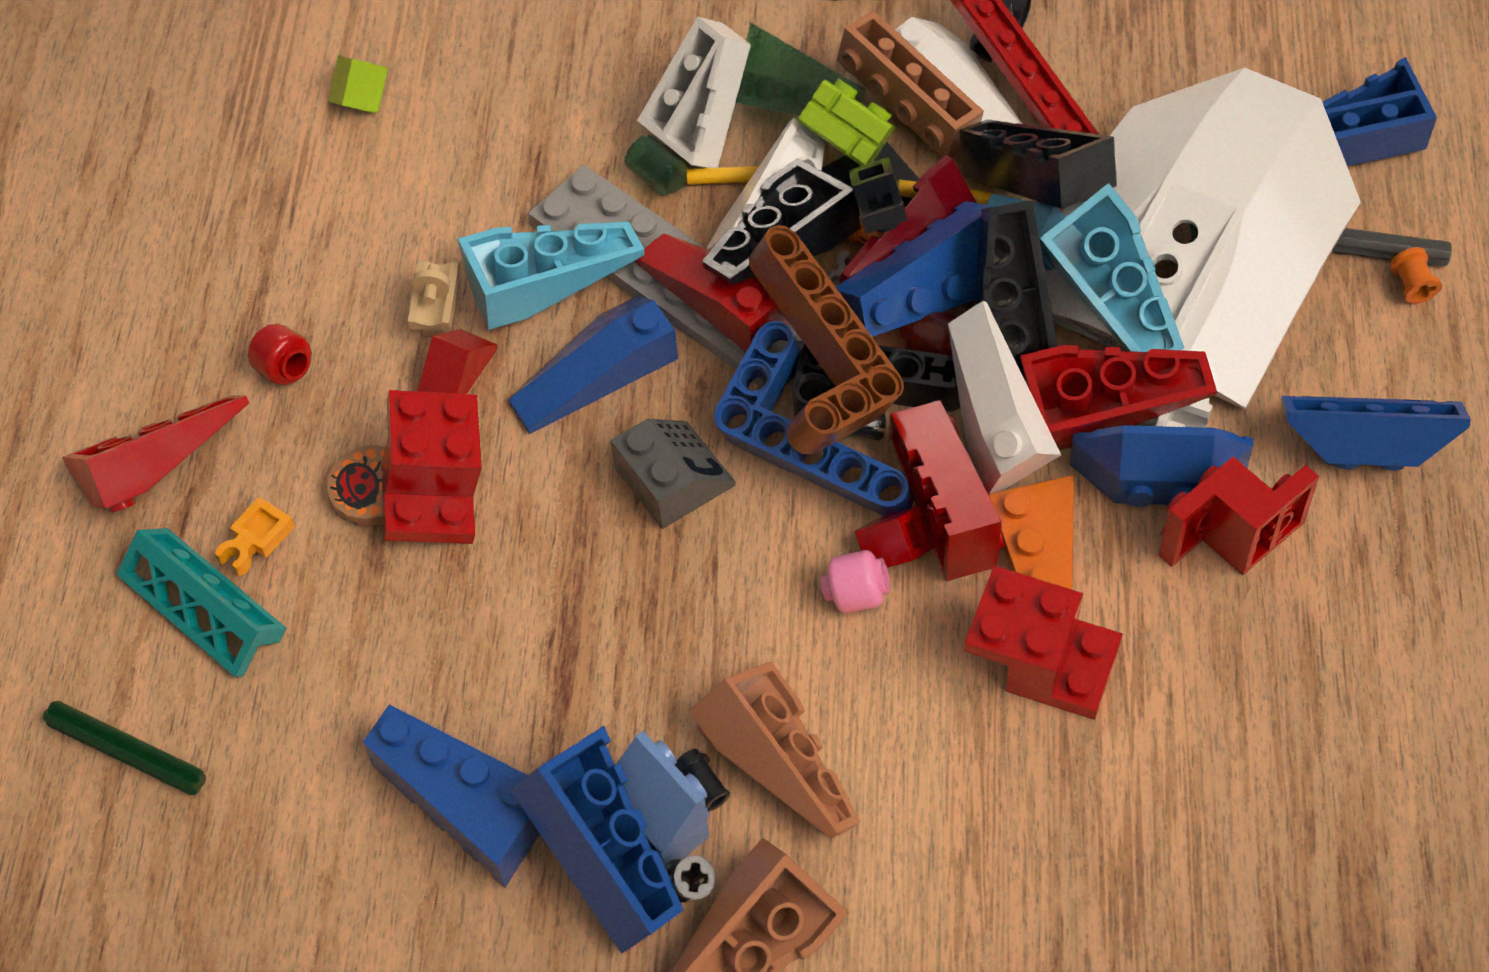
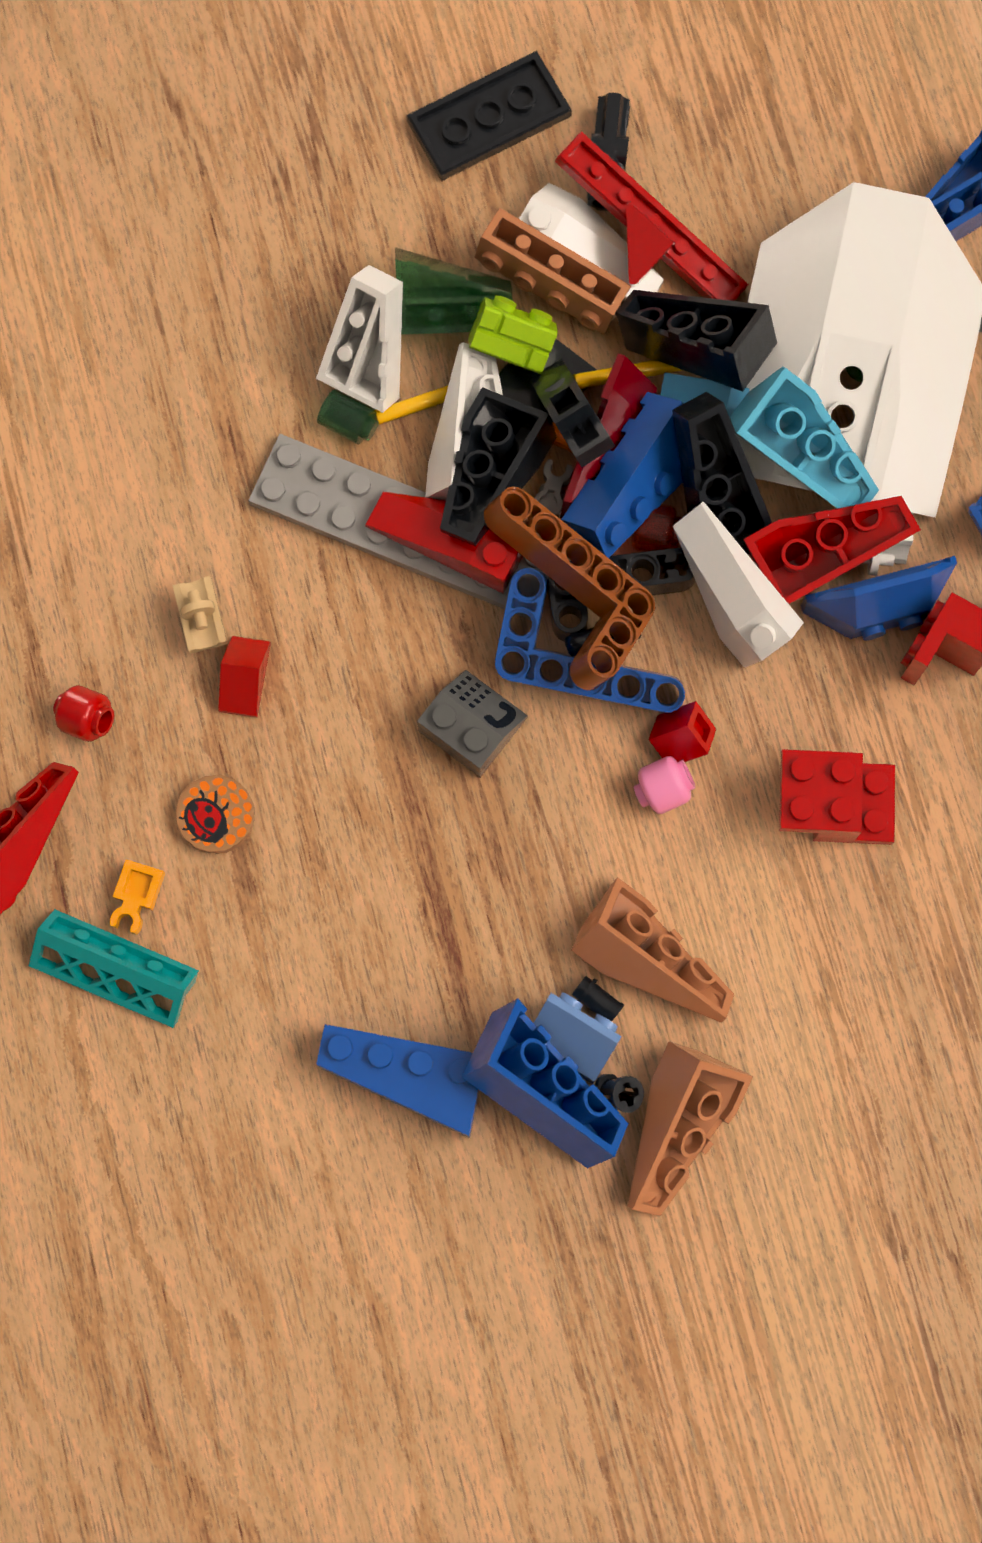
camera: 20 degrees left, 20 degrees up
(124, 747) = (107, 1120): dark green axle -> none
(357, 84) = (34, 405): lime panel -> none
(430, 467) = (269, 791): red bracket -> none
(531, 271) = (279, 562): medium azure wedge -> none
(598, 361) = (371, 624): blue wedge -> none
(947, 490) = (711, 674): wedge -> none
(1010, 80) = (645, 244): none -> red slope
(1039, 529) = (799, 693): orange wing -> none

